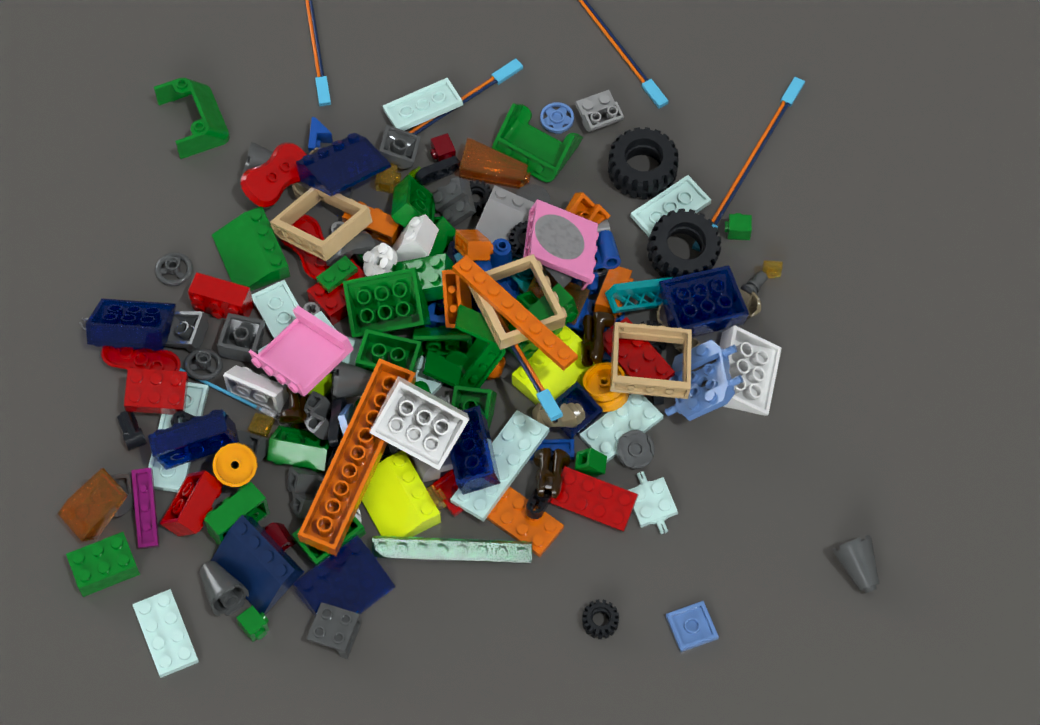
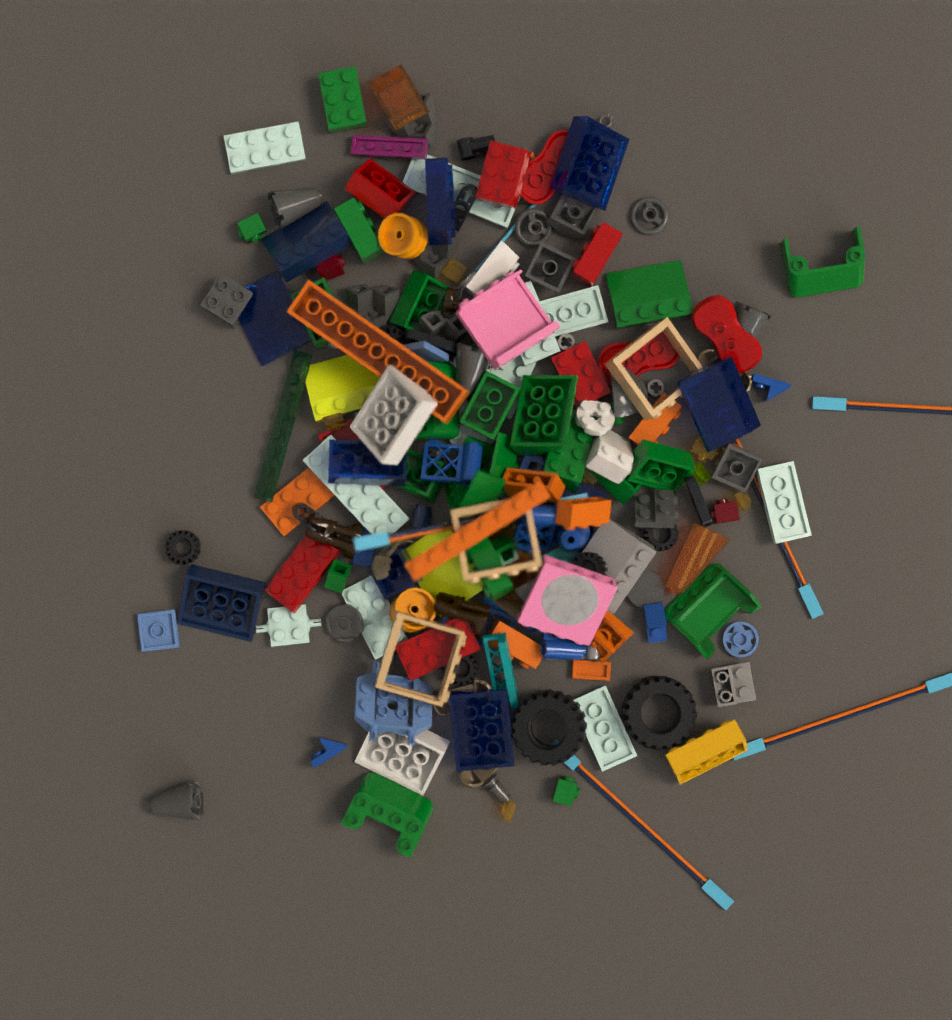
camera: 105 degrees right, 25 degrees up
(336, 274) = (592, 372): green plate -> none
(426, 138) = (742, 500): none -> clear yellow plate
(453, 361) = (468, 462): none -> blue piece
(513, 401) = (421, 516): none -> dark blue brick
(560, 184) = (655, 622): none -> blue slope
(620, 230) = (591, 670): none -> orange tile
(646, 568) = (221, 602): none -> dark blue slope
(667, 117) = (707, 751): none -> yellow brick
(763, 434) = (332, 748): none -> blue slope
(798, 370) = (393, 806): none -> green windscreen

